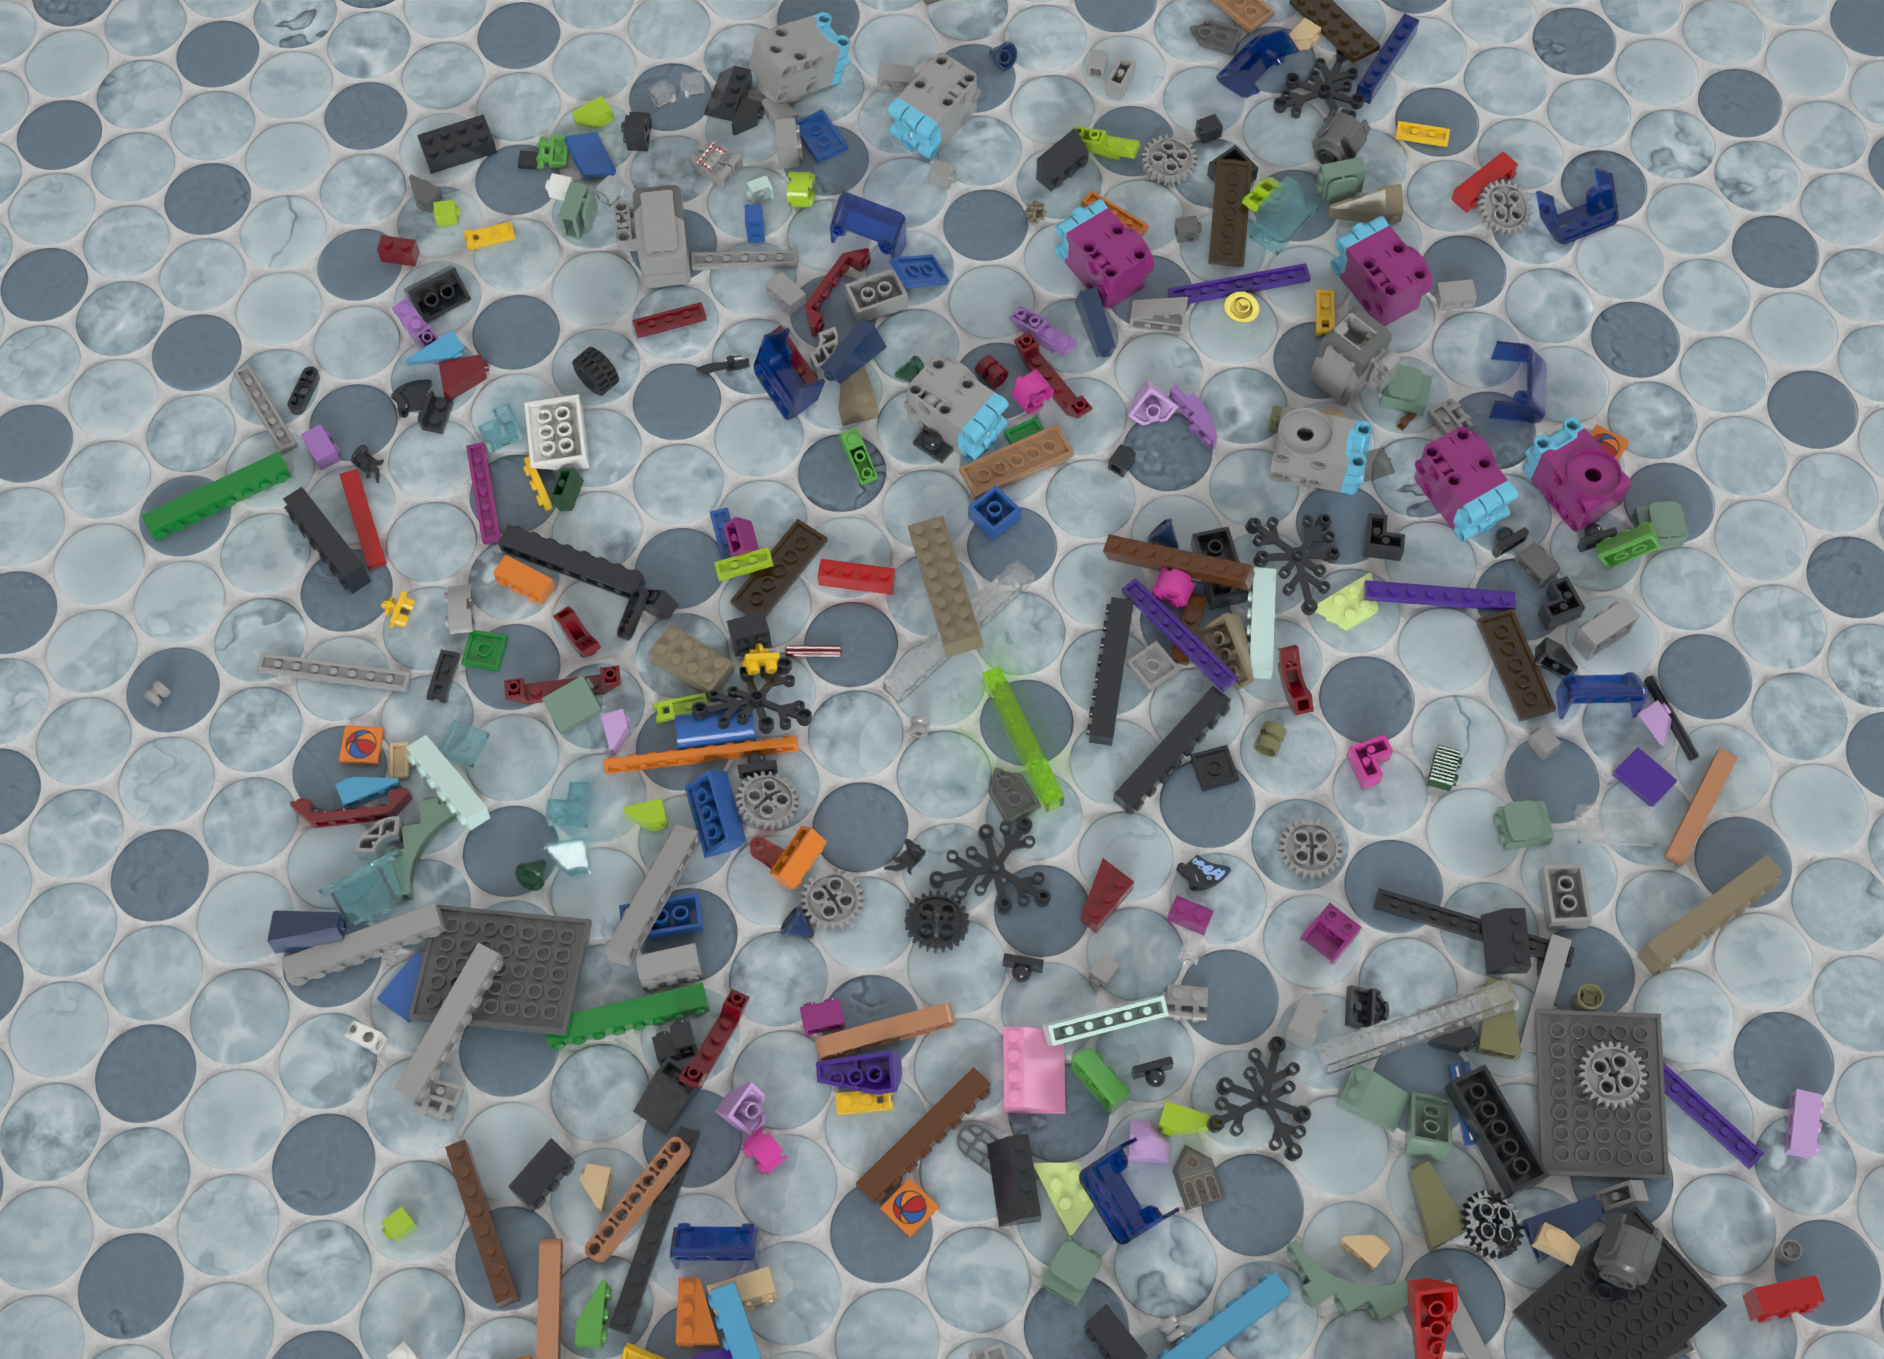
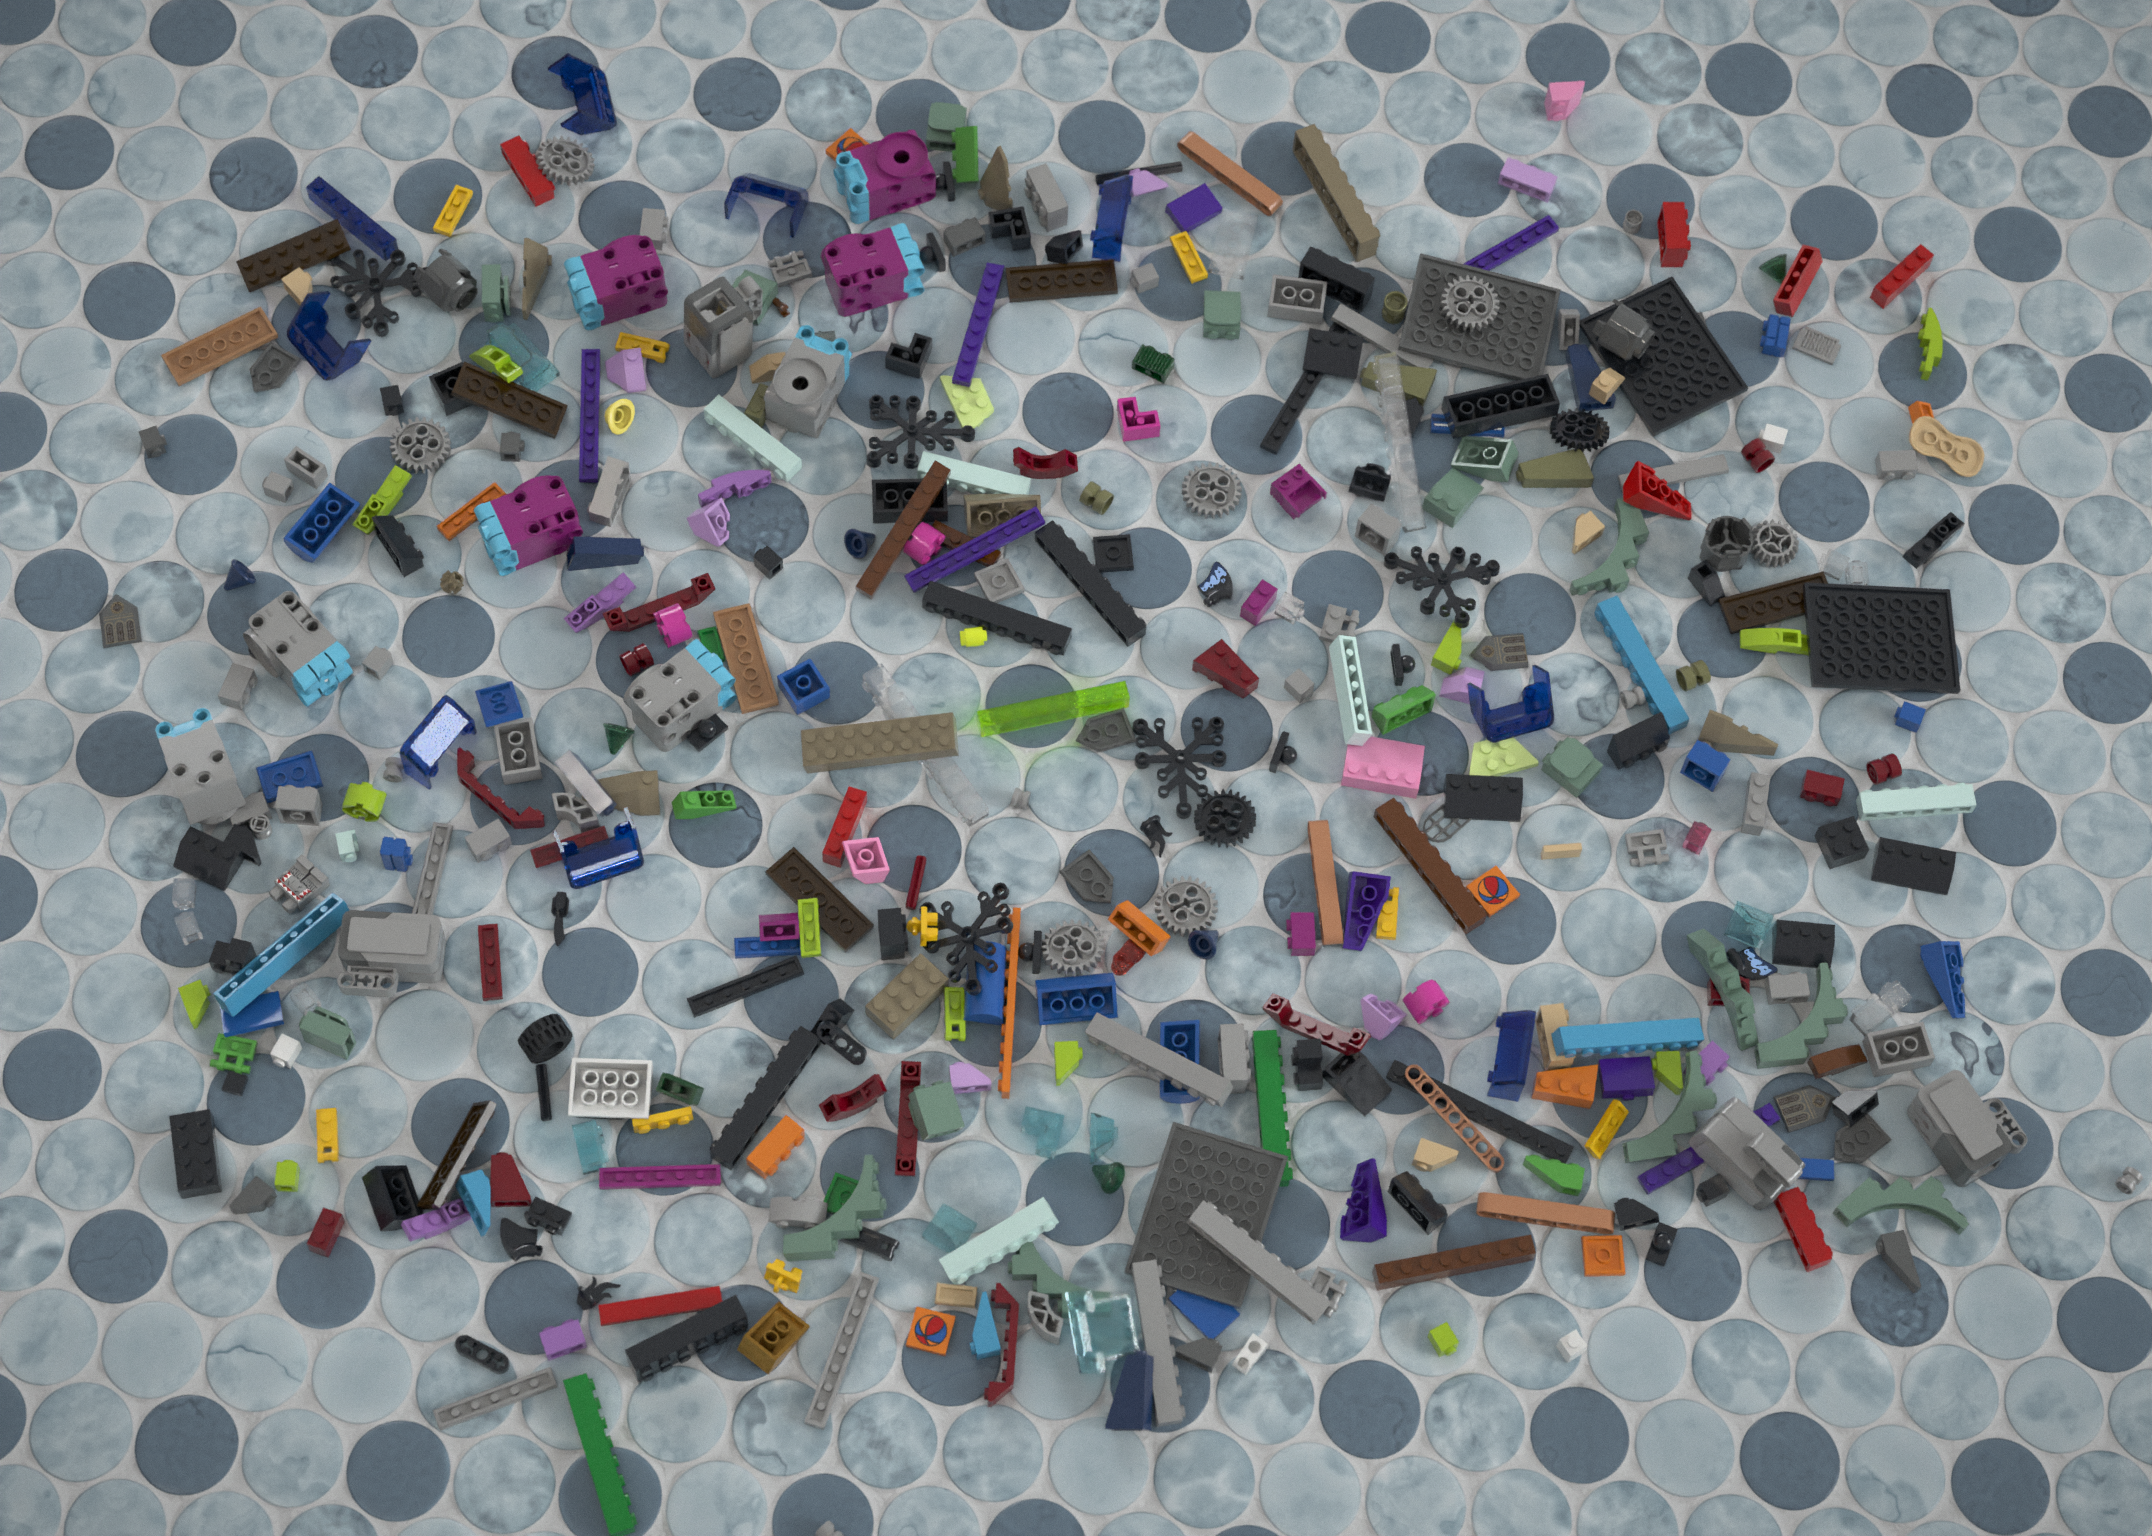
camera: 85 degrees left, 0 degrees up
(340, 613) = (772, 1337): none -> pearl gold slope
(360, 990) = (1200, 1353): none -> dark grey slope
(454, 650) = (846, 1223): none -> sand green arch
(483, 331) = (456, 1155): none -> dark brown plate
(524, 1127) = (1366, 1212): none -> dark purple wedge
(552, 387) = (543, 1092): none -> black axle
(643, 160) = (281, 955): none -> dark azure brick
(682, 527) = (745, 986): none -> black tile
(765, 124) = (261, 827): none -> light grey wheel
(820, 596) = (866, 860): none -> bright pink slope
(847, 805) = (1089, 878): none -> dark grey tile
(968, 1273) = (1561, 851): none -> tan tile
(1068, 100) = (320, 523): none -> blue brick
(1085, 653) = (973, 637): none -> neon yellow brick
(1251, 422) = (752, 438): none -> light aqua brick
(1296, 307) = (627, 370): none -> lavender slope
(1584, 782) = (1188, 257): none -> yellow plate
(1601, 933) = (1343, 280): none -> black brick
(1603, 579) = (995, 183): none -> dark tan wedge

